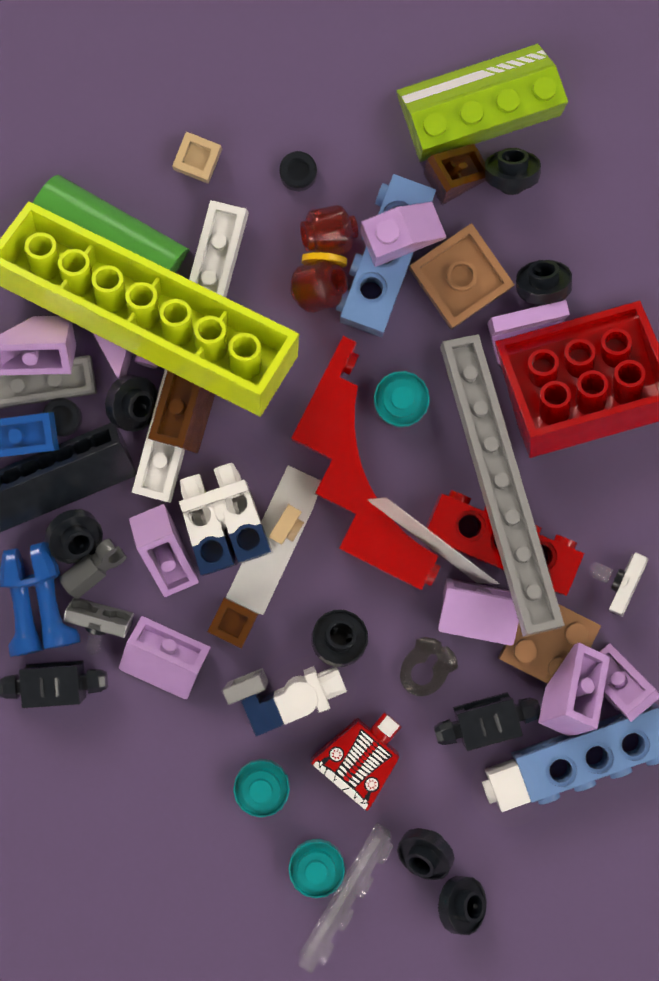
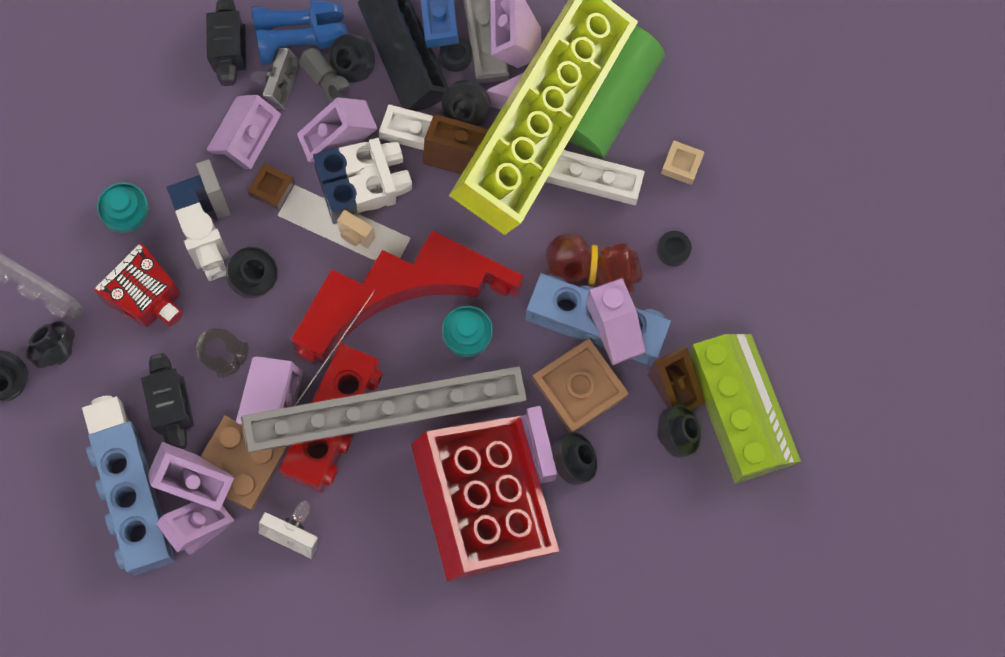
camera: 85 degrees right, 15 degrees down
(316, 868) = (47, 252): teal plate -> none

